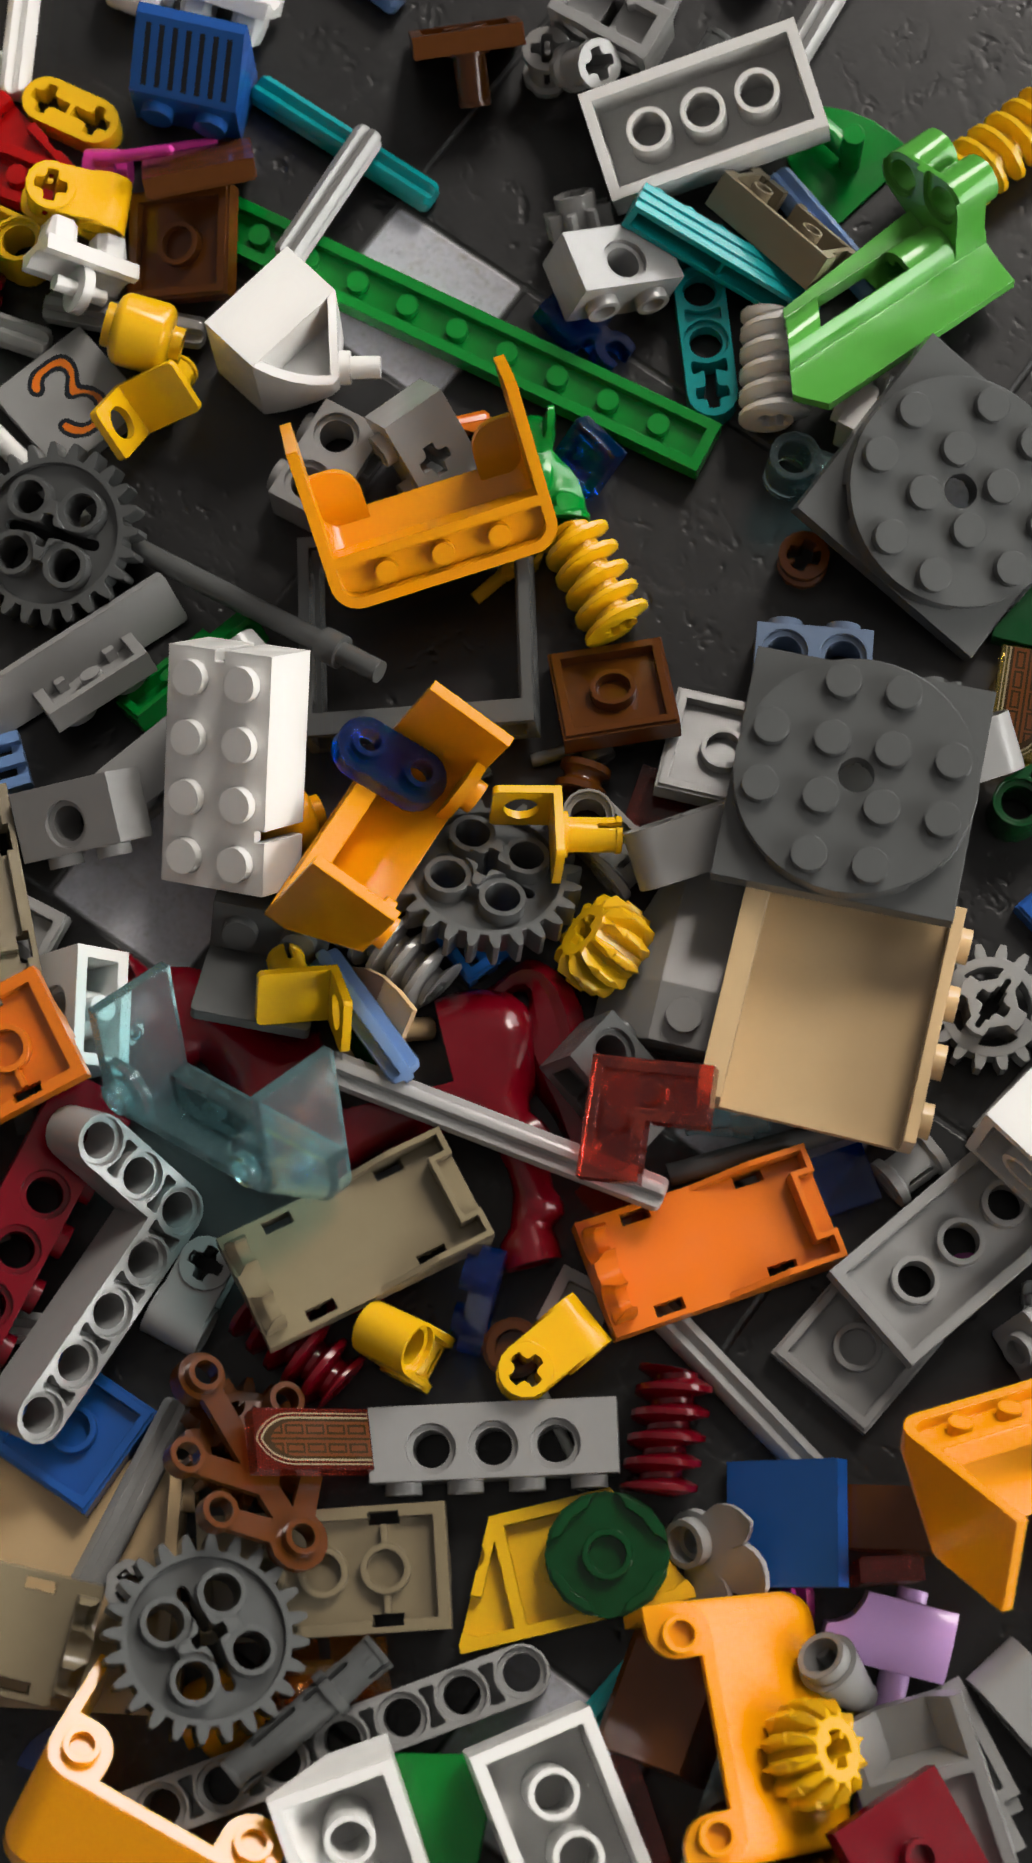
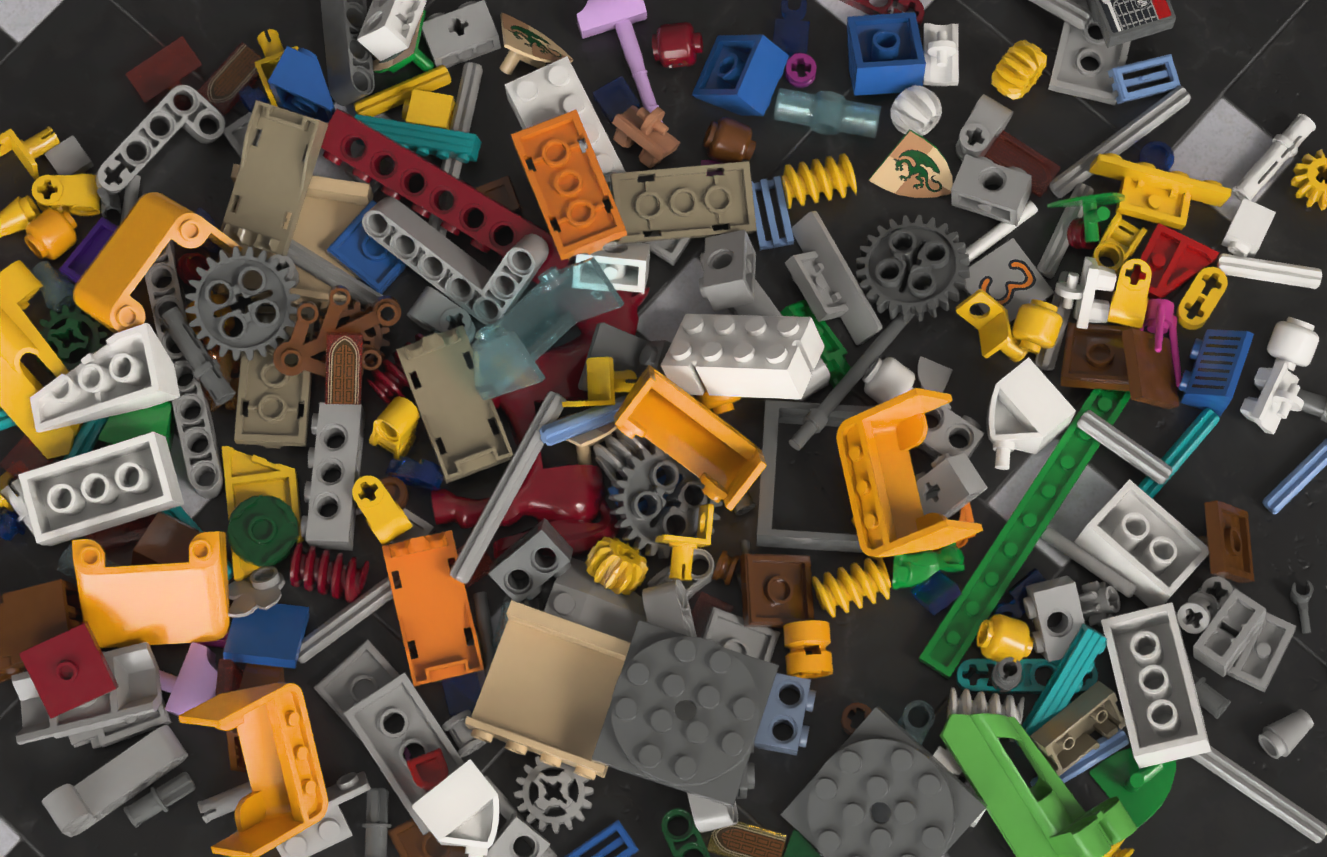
camera: 95 degrees right, 0 degrees up
(136, 1756) = (188, 264): none -> dark red plate
(233, 497) = (932, 375): none -> light grey tile
(252, 553) = (887, 380): none -> white head
(389, 766) = (734, 445): clear blue plate -> none
(484, 160) = (1143, 544): none -> white slope
(516, 236) = (1089, 562): none -> light grey bar
(630, 1097) = (509, 559): clear red plate -> none
(655, 345) = (1004, 638): none -> yellow head
(705, 636) = (808, 636): none -> light orange wheel
(719, 322) = (1014, 677): none -> dark grey pin
(813, 1754) = (130, 621): yellow gear -> none
(835, 1671) = (177, 646): light grey cone -> none
(987, 1208) = (428, 769): none -> red tile

